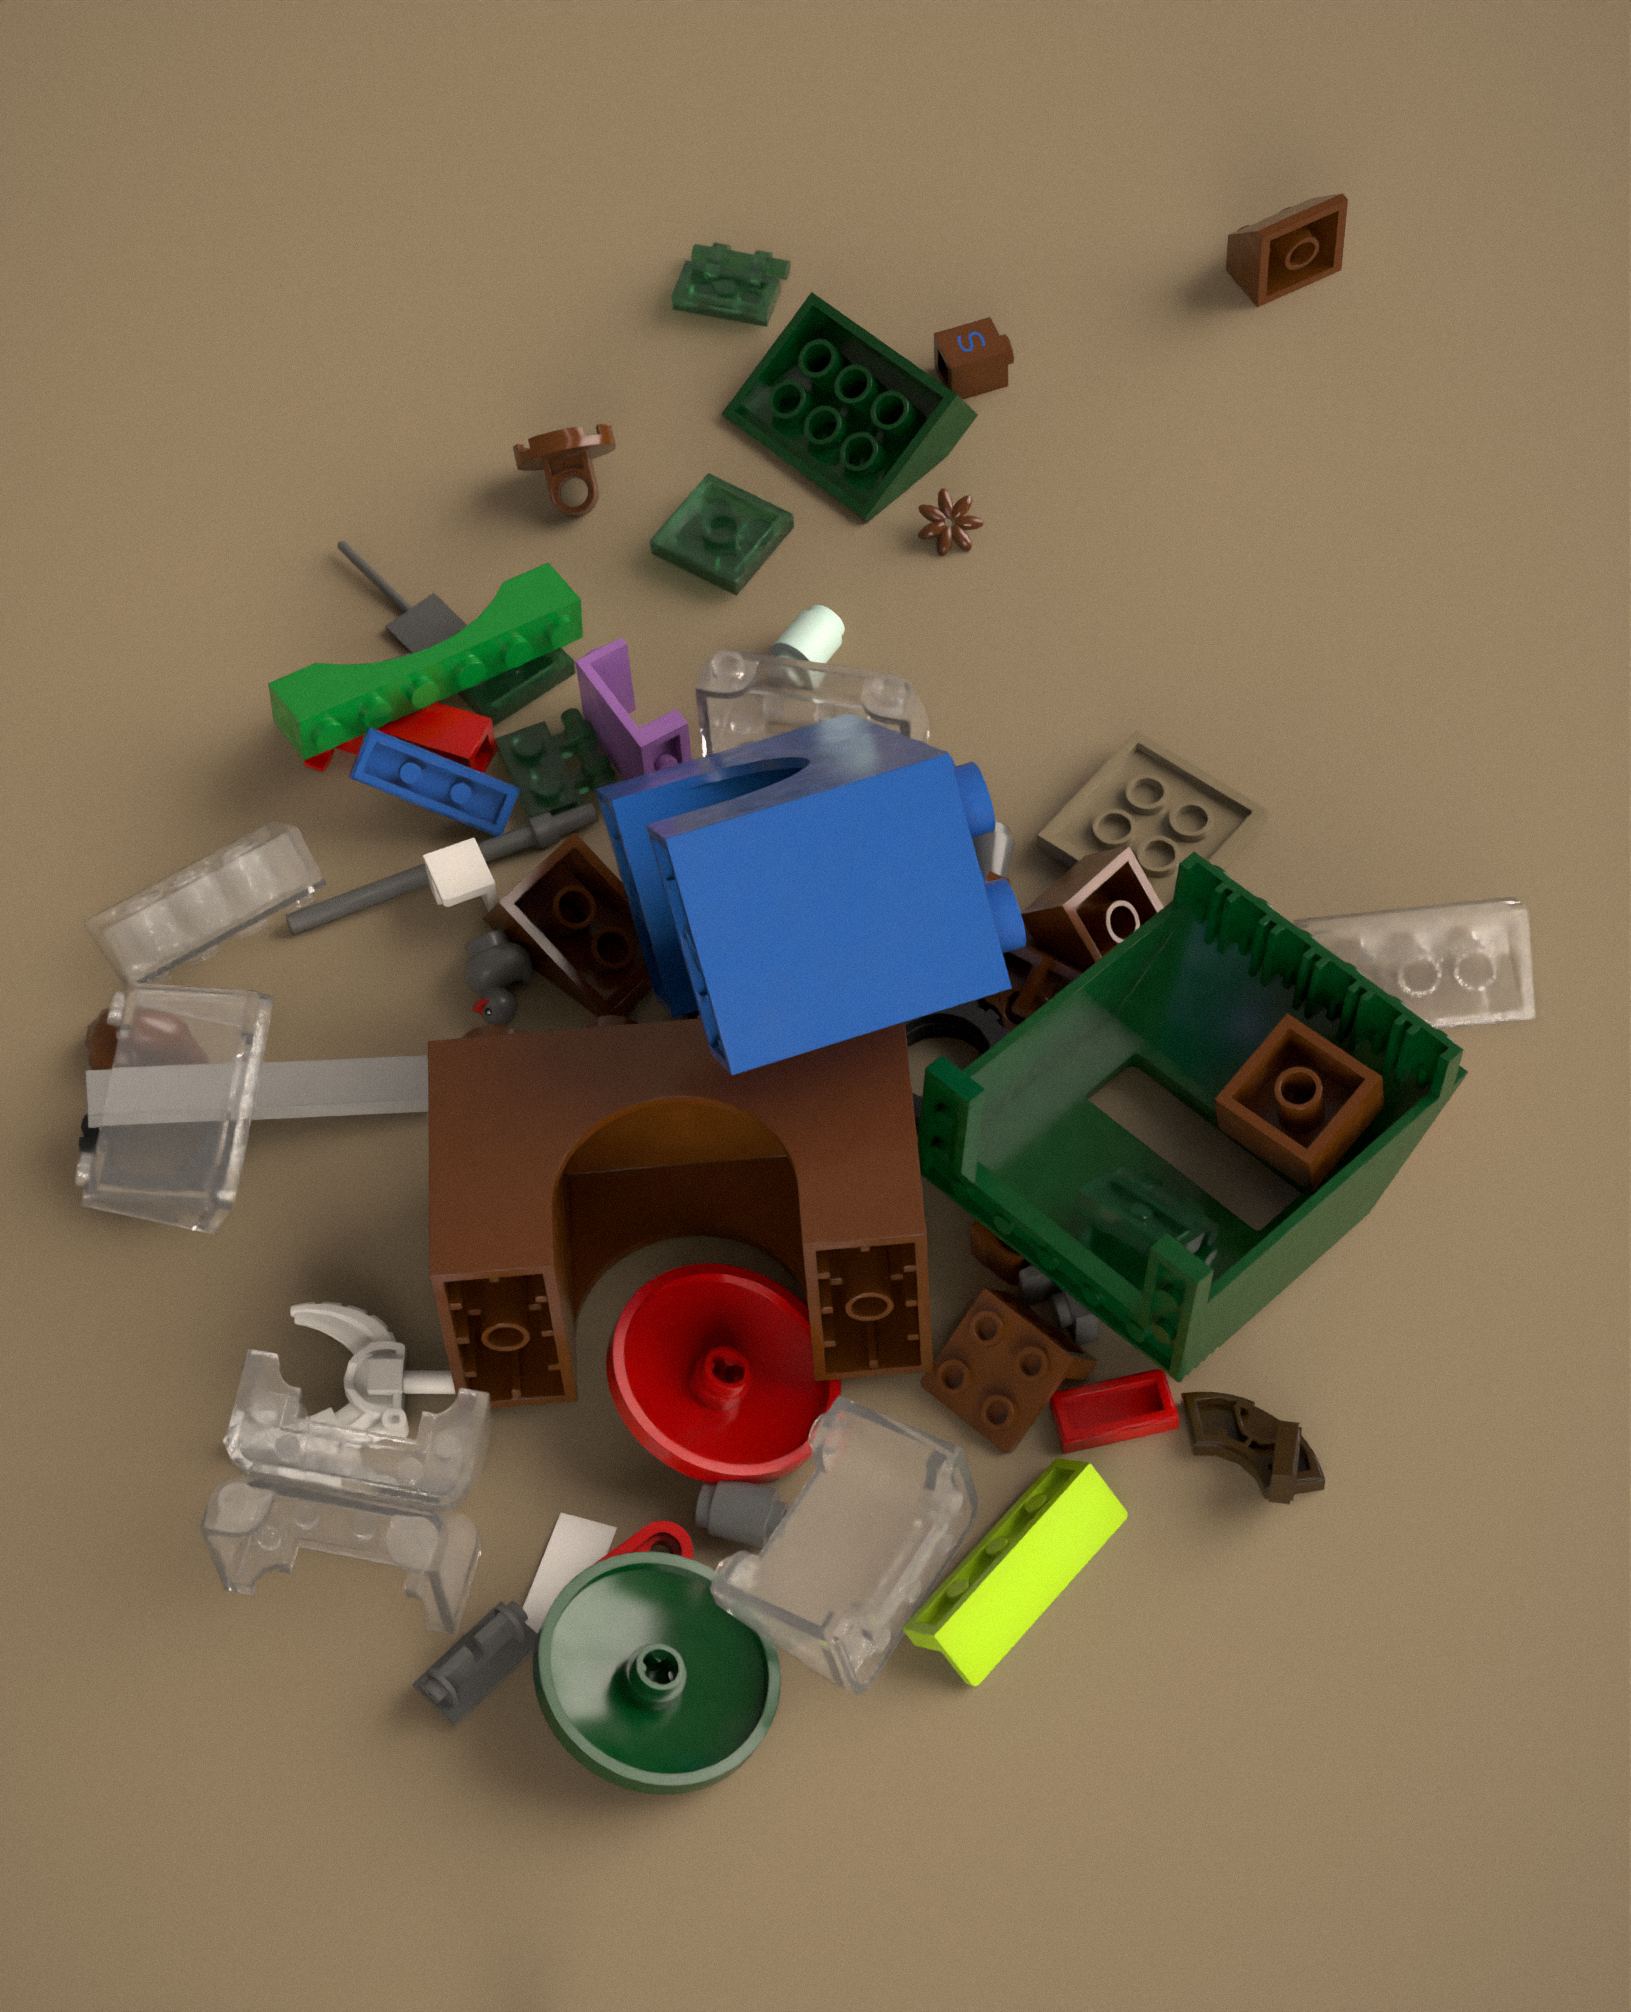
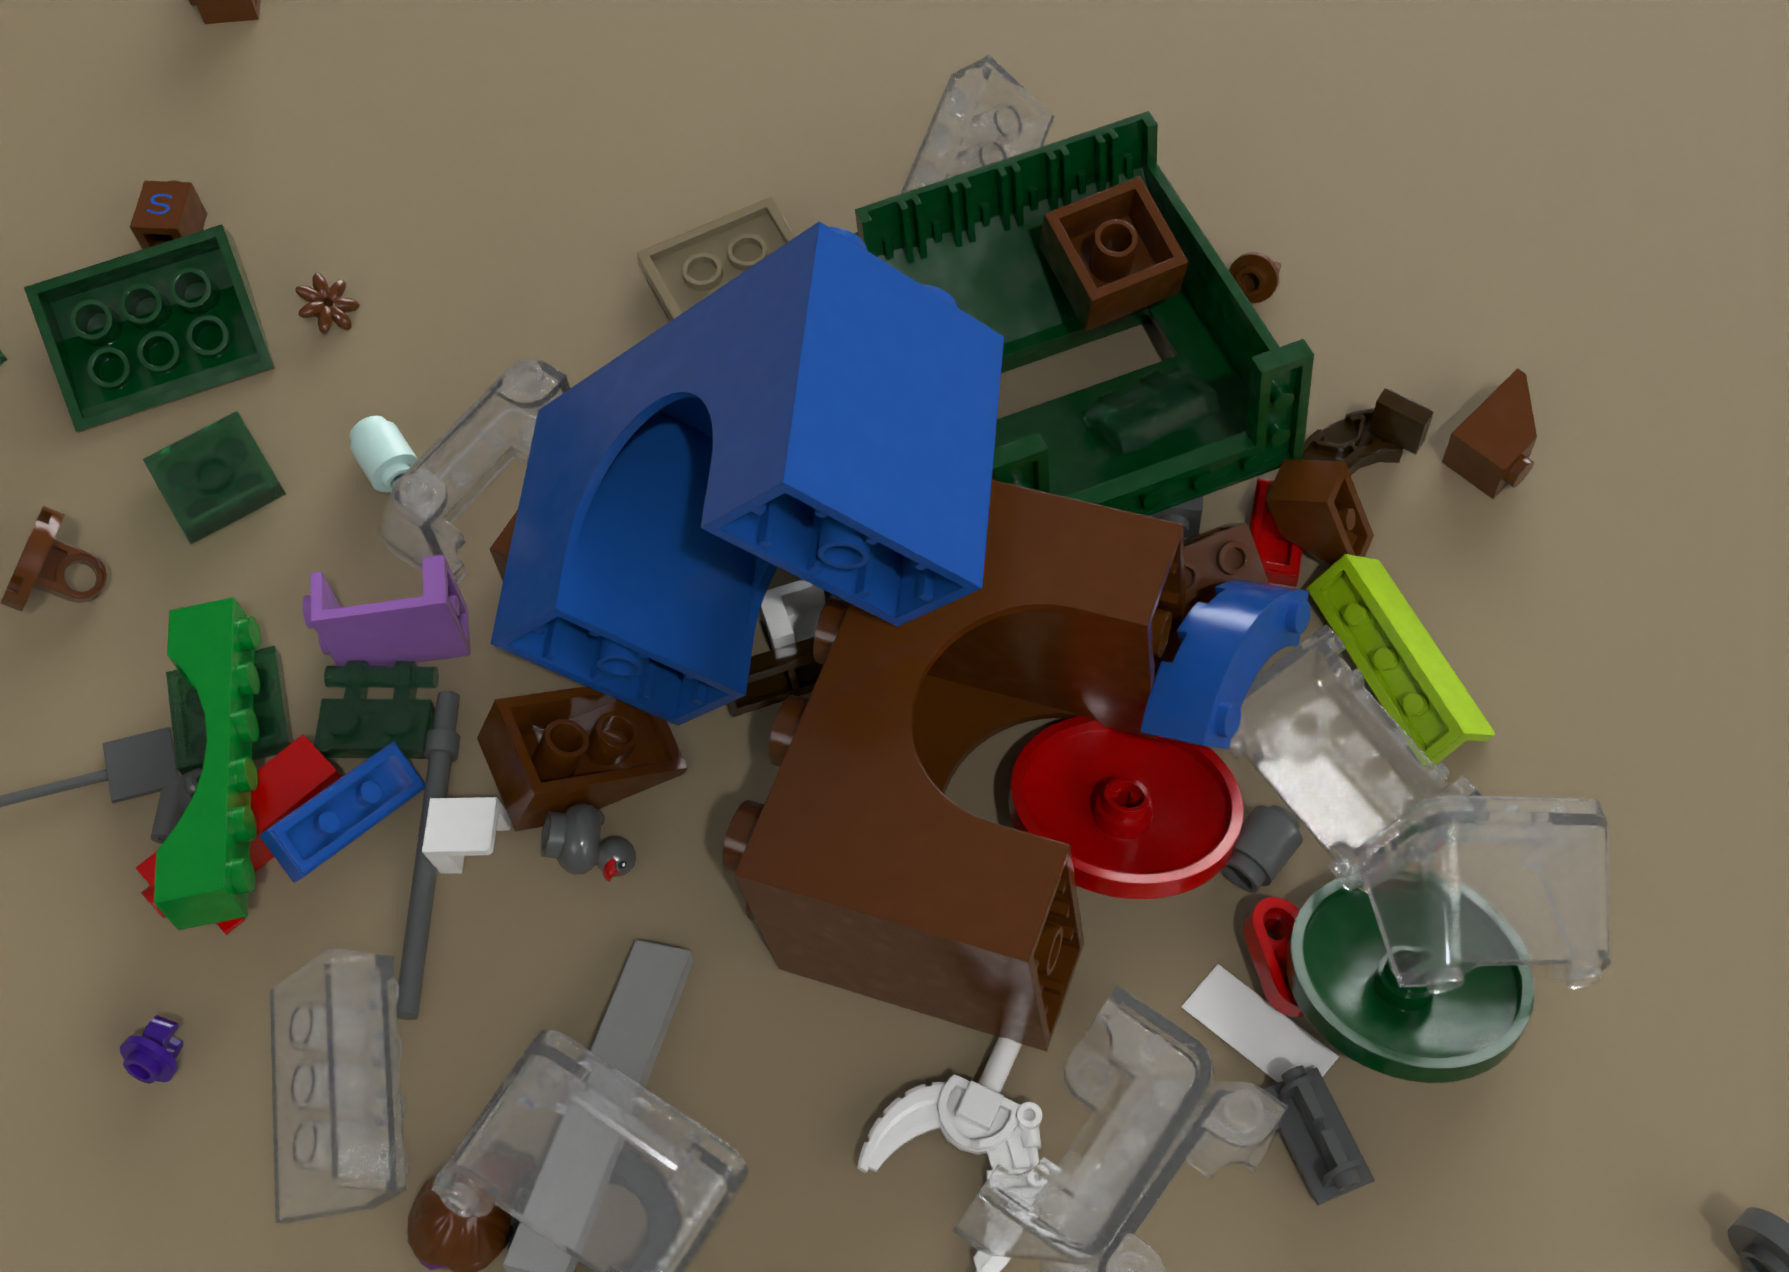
camera: 65 degrees left, 5 degrees up
(181, 766) = (154, 1053): none -> dark purple plate
(750, 1700) = (1492, 887): none -> clear windscreen
(894, 1372) = (1219, 658): none -> blue brick
(1132, 1428) = (1319, 509): none -> reddish brown slope
(1331, 1569) = (1496, 439): none -> reddish brown slope
(1413, 1273) = (1256, 275): none -> reddish brown plate

